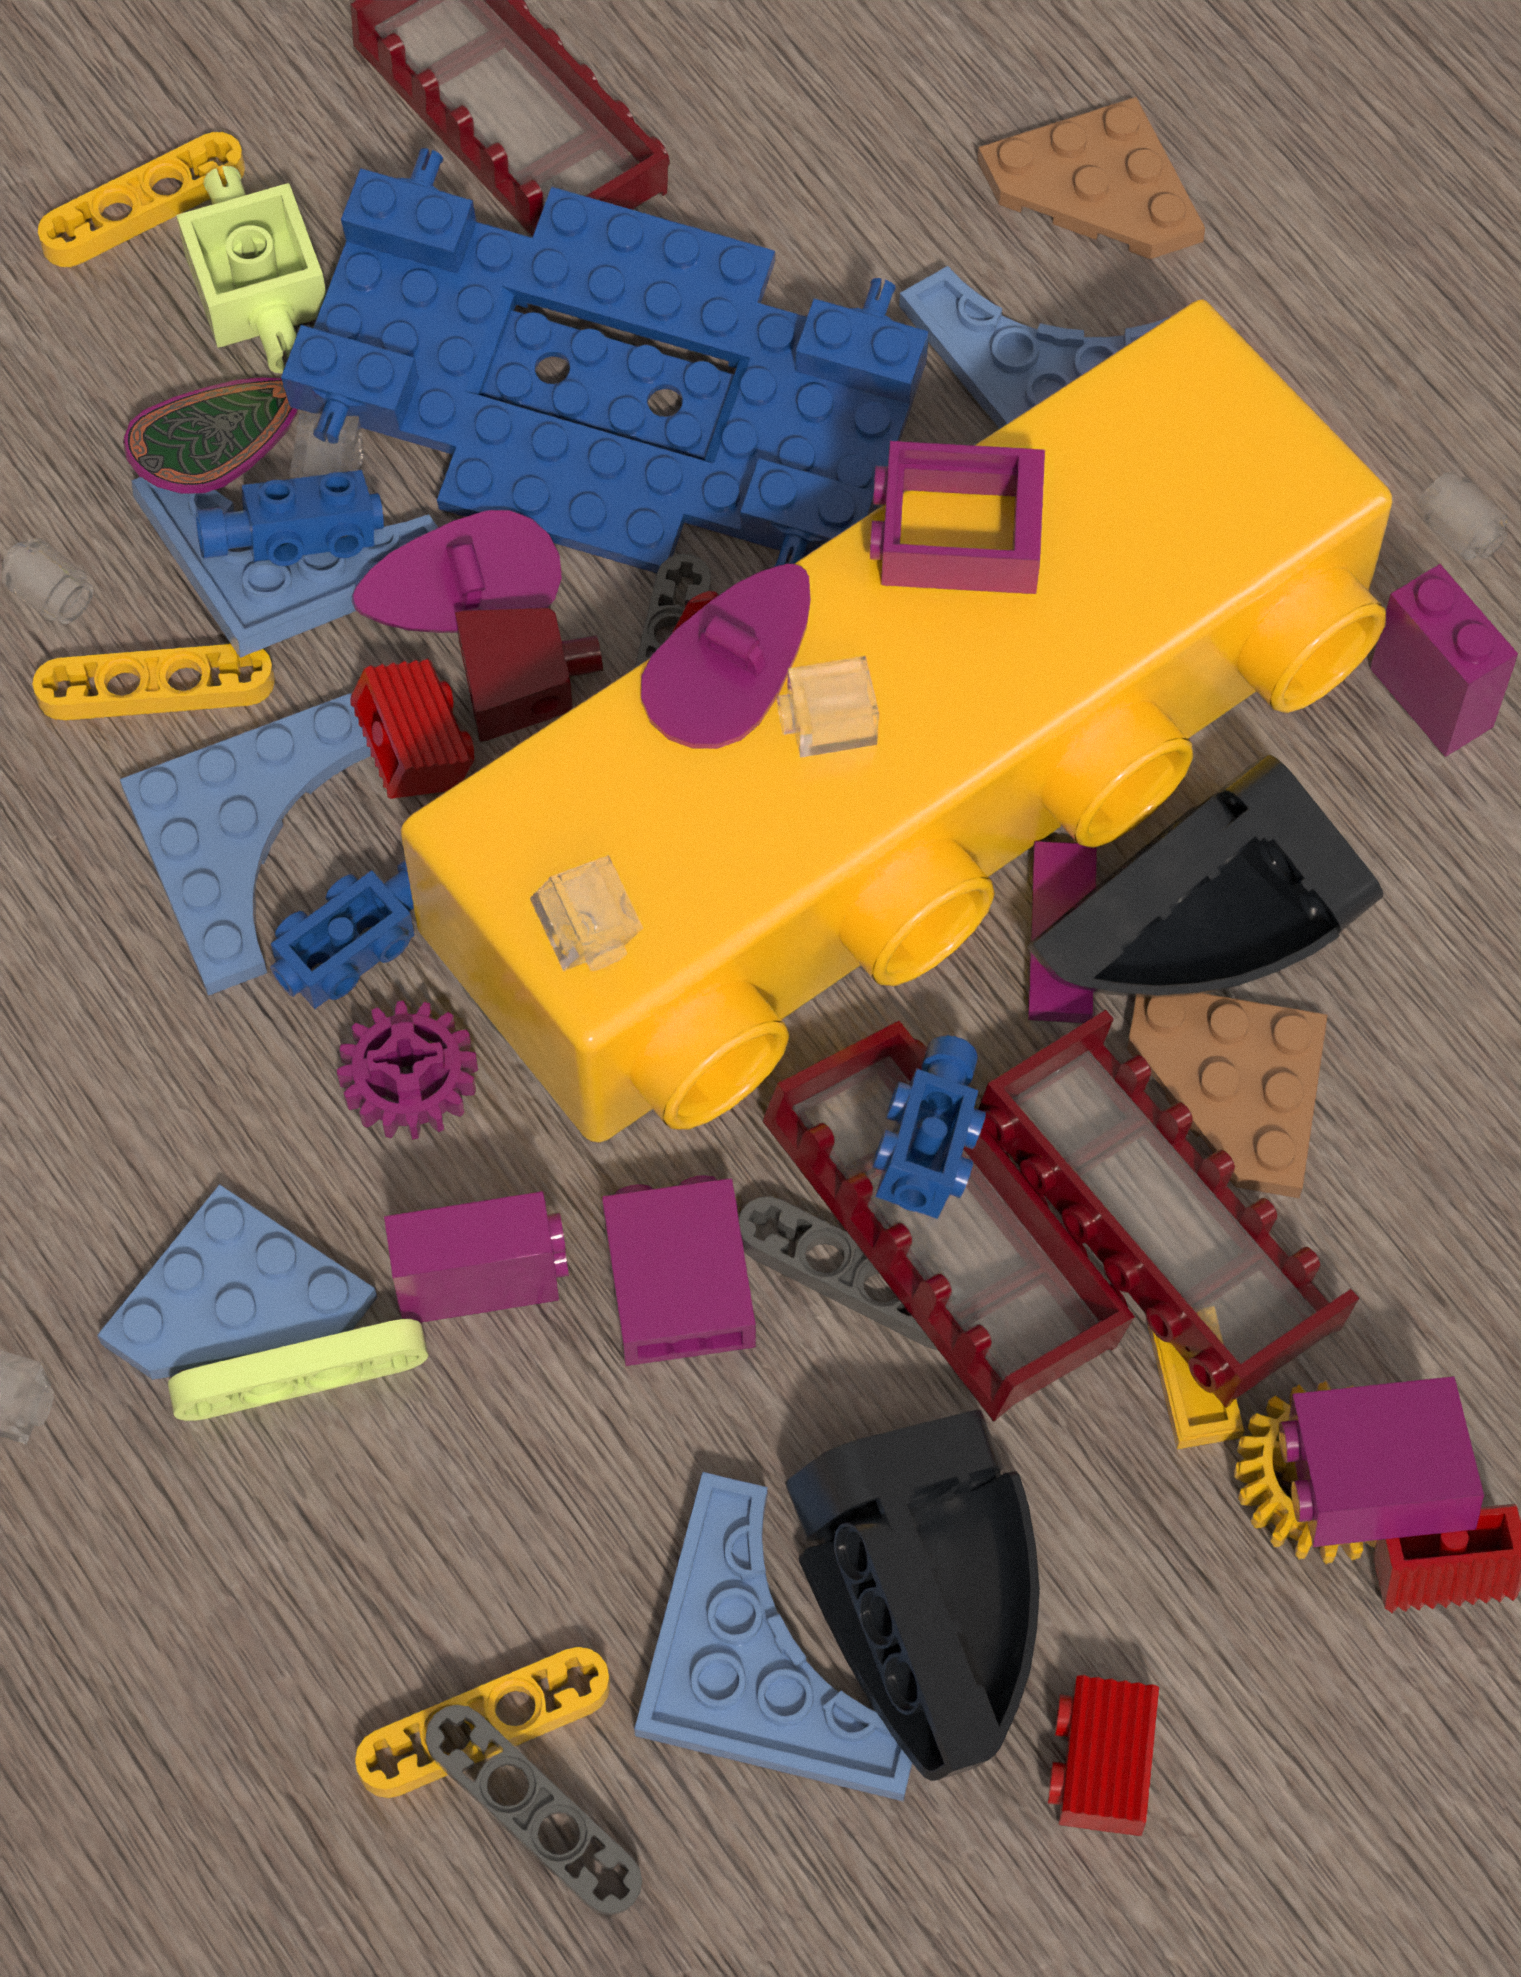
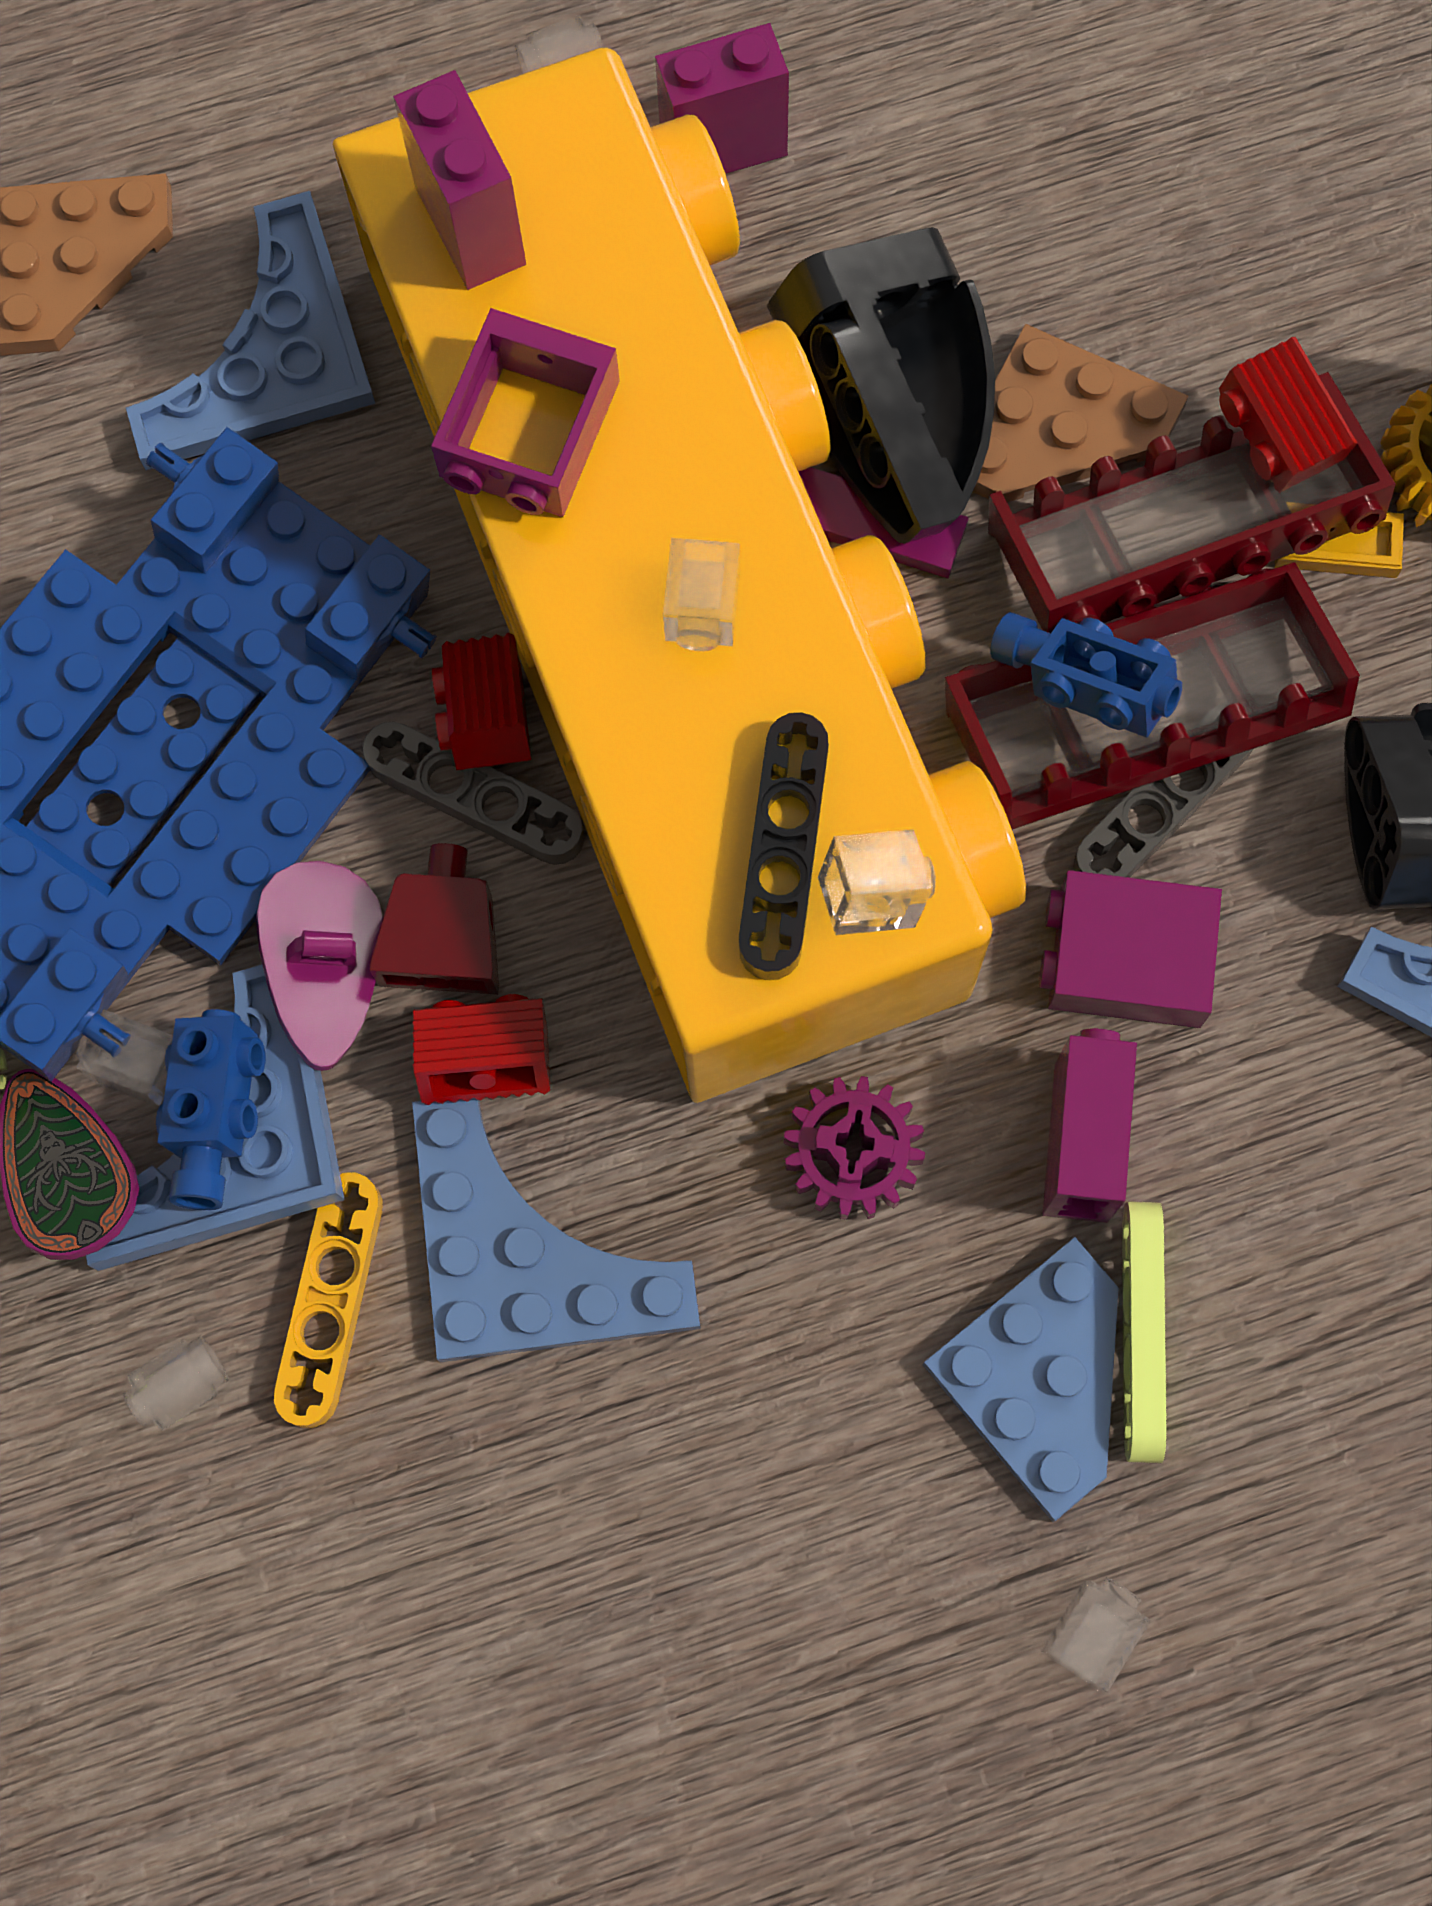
camera: 70 degrees left, 10 degrees up
(334, 936) = (699, 1177): blue brick -> none
(609, 830) = (779, 844): none -> black beam
(728, 660) = (603, 682): magenta shield -> none
(1159, 386) = (461, 179): none -> magenta brick
(1277, 1252) = (1285, 415): none -> red brick

